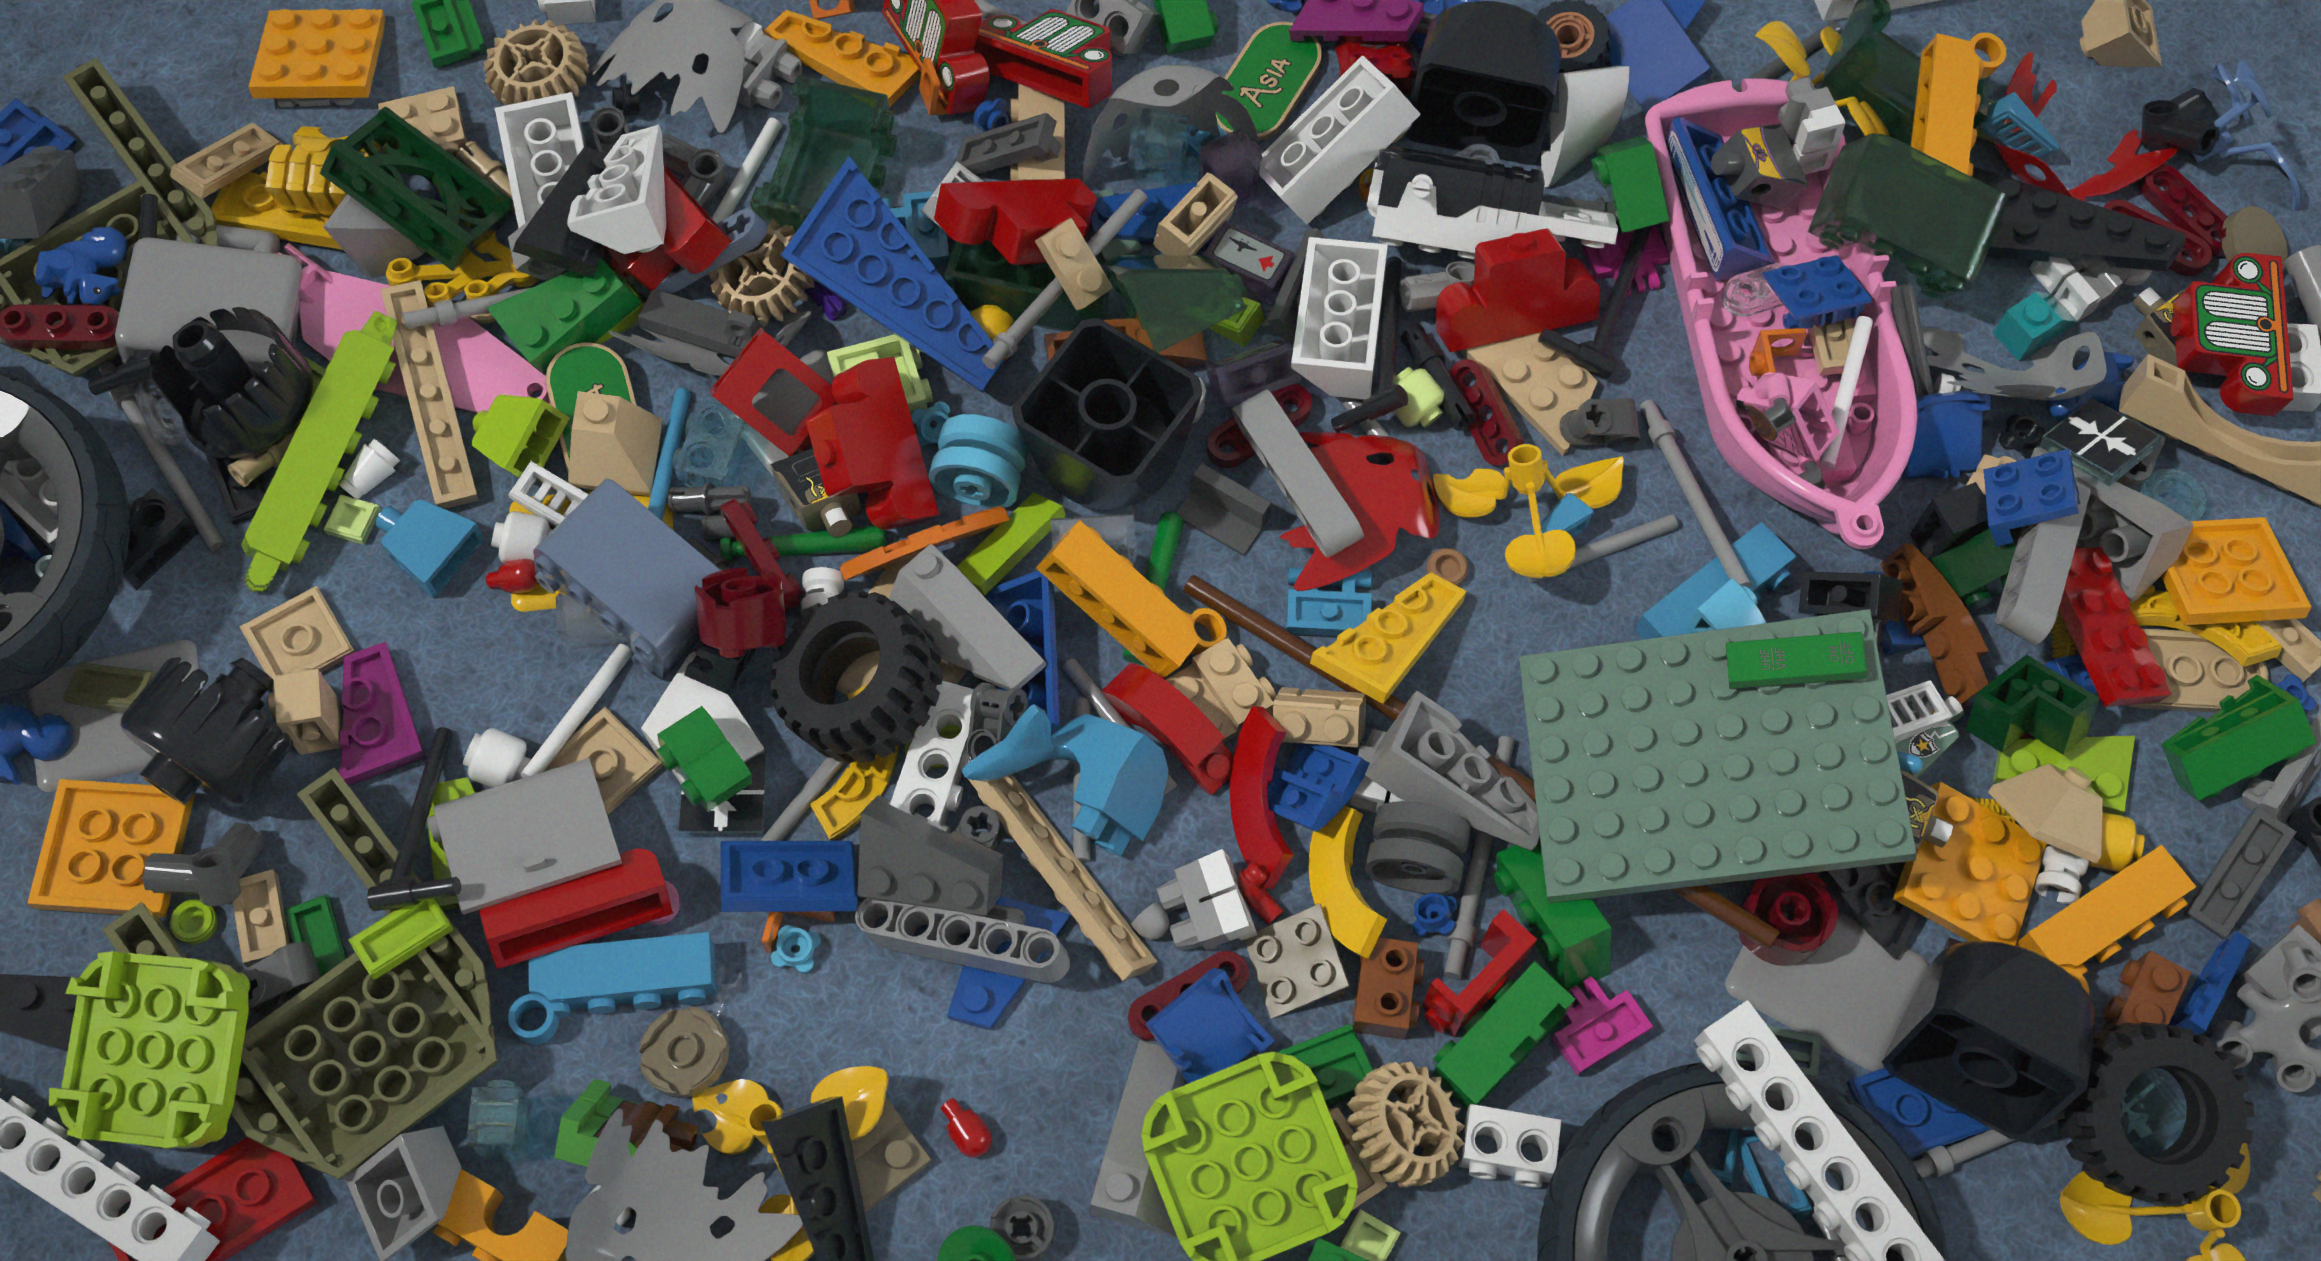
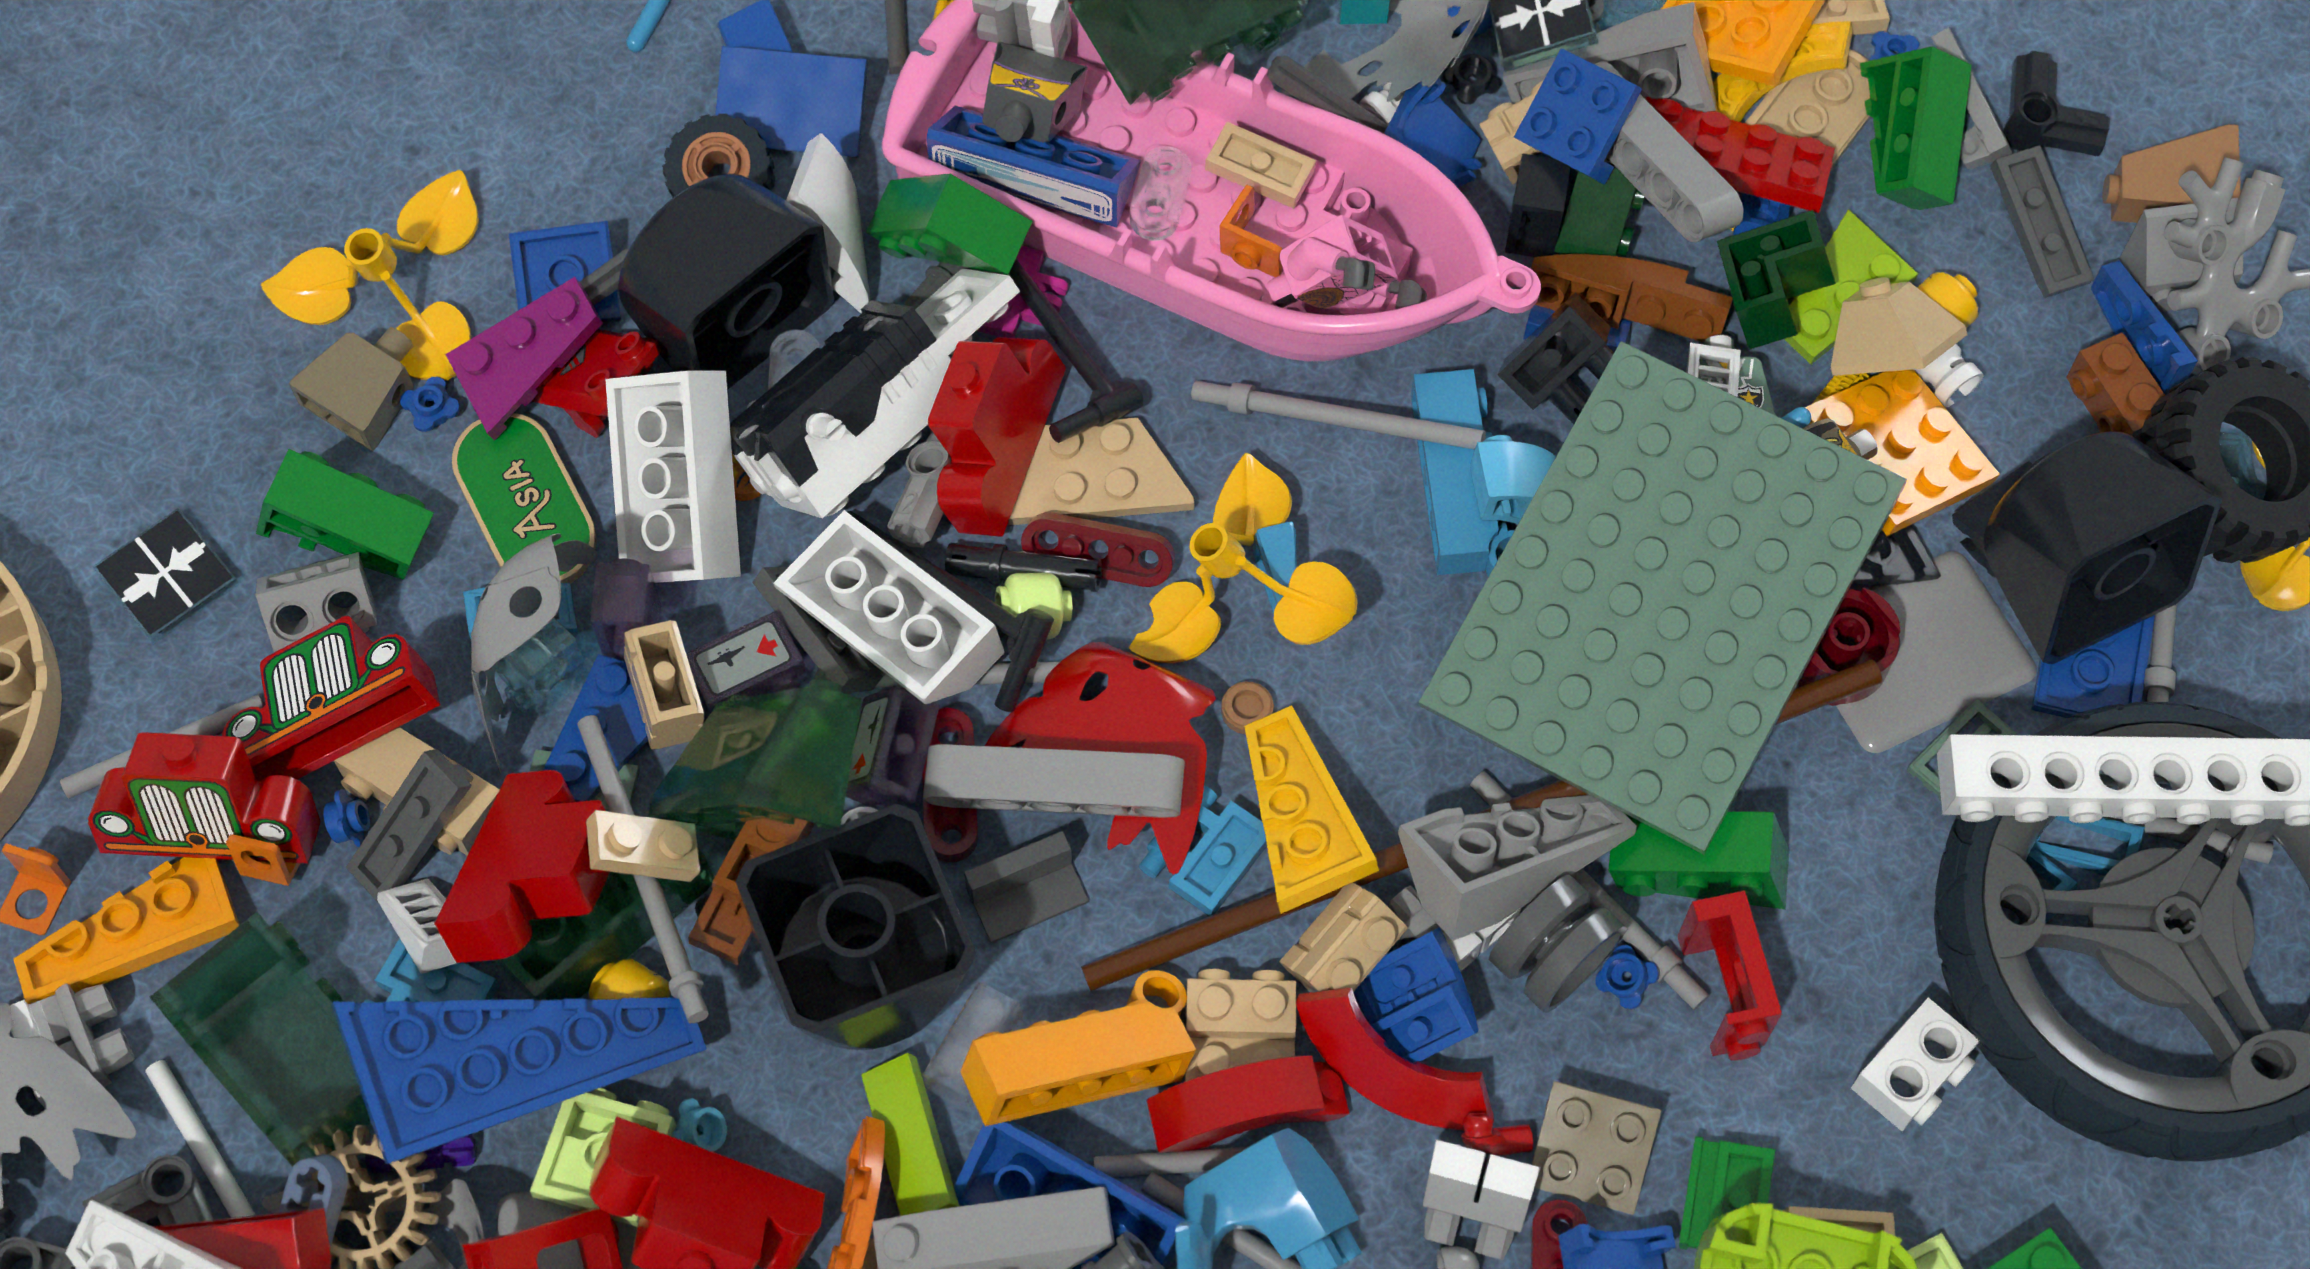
camera: 55 degrees left, 0 degrees up
(978, 461) = (796, 1107): medium azure wheel -> none
(1161, 556) = (1034, 987): green piece -> none
(1332, 886) = (1541, 1057): yellow tile -> none
(1386, 989) = (1678, 1075): dark orange brick -> none
(1392, 1129) = (1843, 1151): tan gear -> none
(1502, 1036) = (1816, 1025): green wedge -> none
(1598, 1026) = (1840, 898): dark pink hinge -> none
(1601, 423) = (1192, 447): dark grey piece -> none
(1622, 541) = (1333, 507): light grey bar -> none
(1796, 660) = (1631, 445): green tile -> none
(1817, 292) = (1212, 144): blue hinge -> none
(1847, 387) = (1326, 182): white bar -> none
(2110, 913) = (2014, 360): light orange hinge -> none

